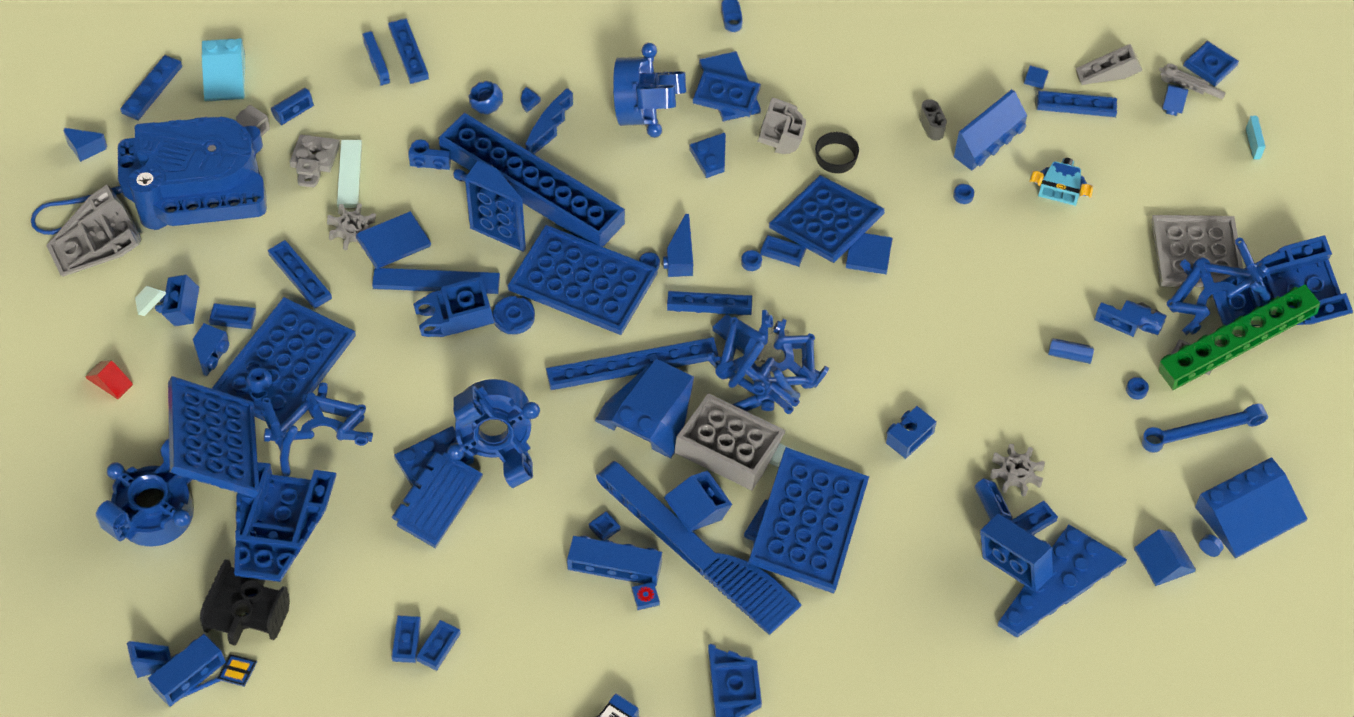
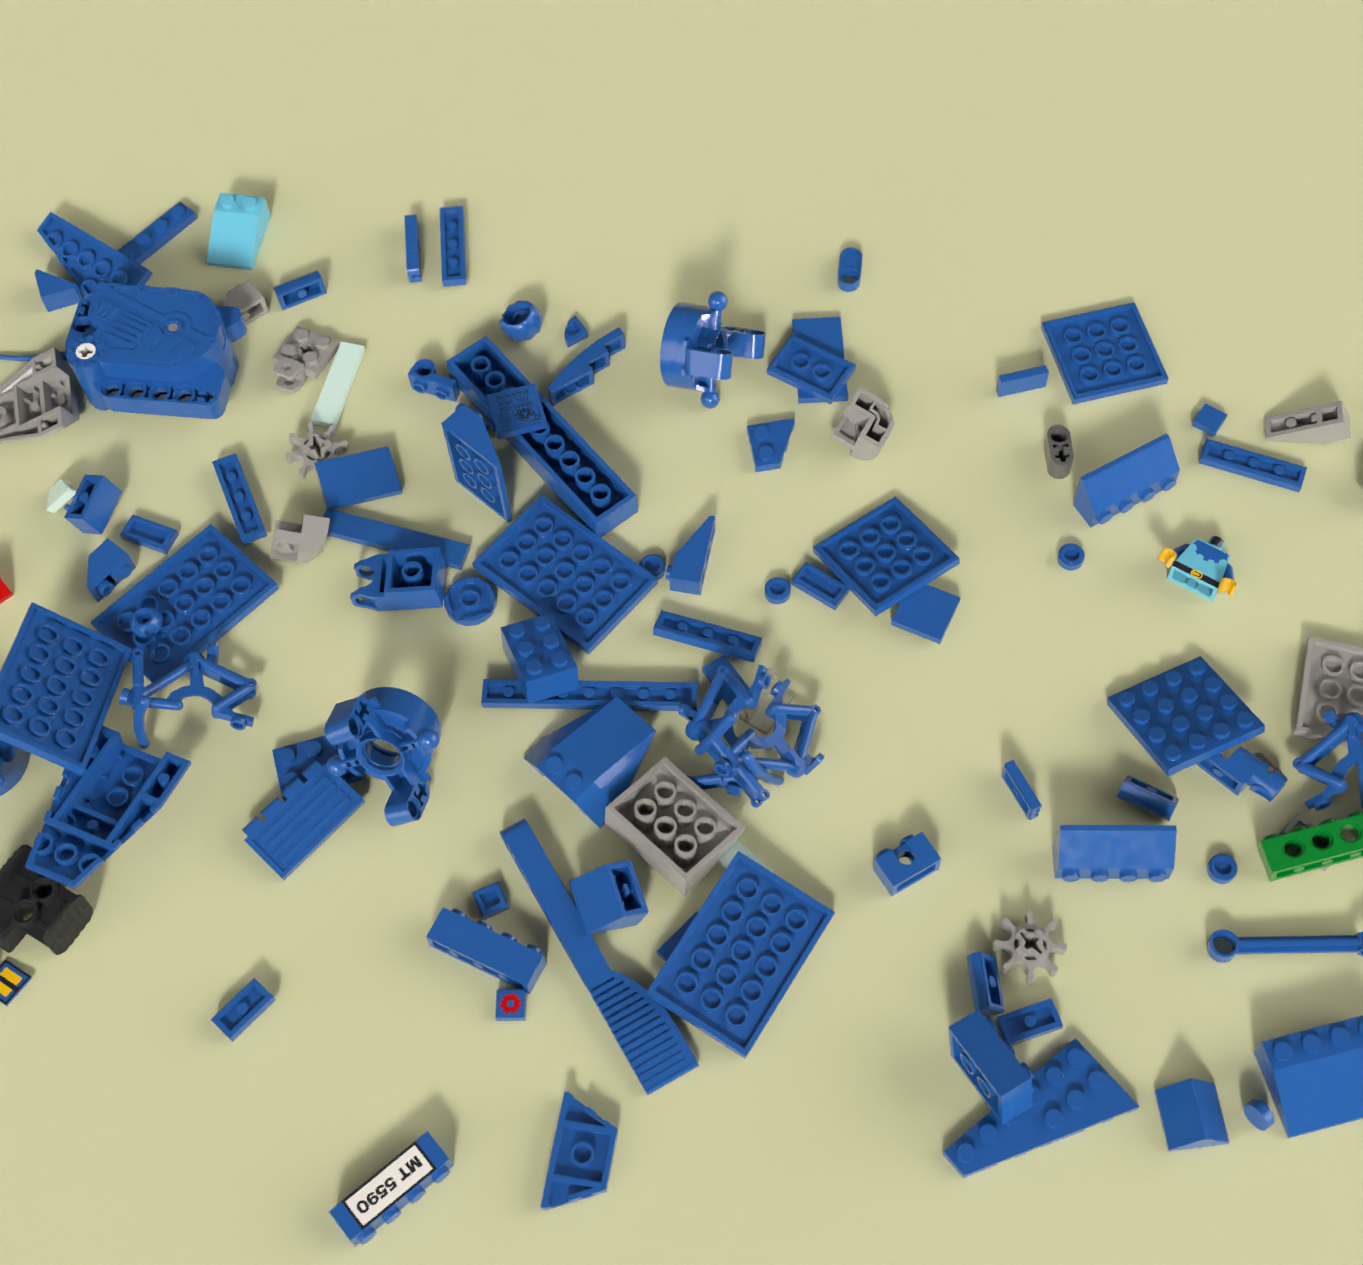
camera: 20 degrees right, 5 degrees up
(104, 112) = (88, 258): none -> blue wing
(365, 295) = (299, 542): none -> light grey brick
(406, 639) = (208, 992): blue plate -> none
(511, 162) = (517, 411): none -> blue tile
(587, 342) = (539, 658): none -> blue brick
(837, 138) = (925, 451): black tyre -> none
(890, 73) = (1022, 381): none -> tile
(944, 43) = (1104, 353): none -> blue tile
(978, 363) = (1021, 790): none -> blue tile
(1059, 390) = (1114, 852): none -> slope
(1081, 287) = (1185, 715): none -> blue plate

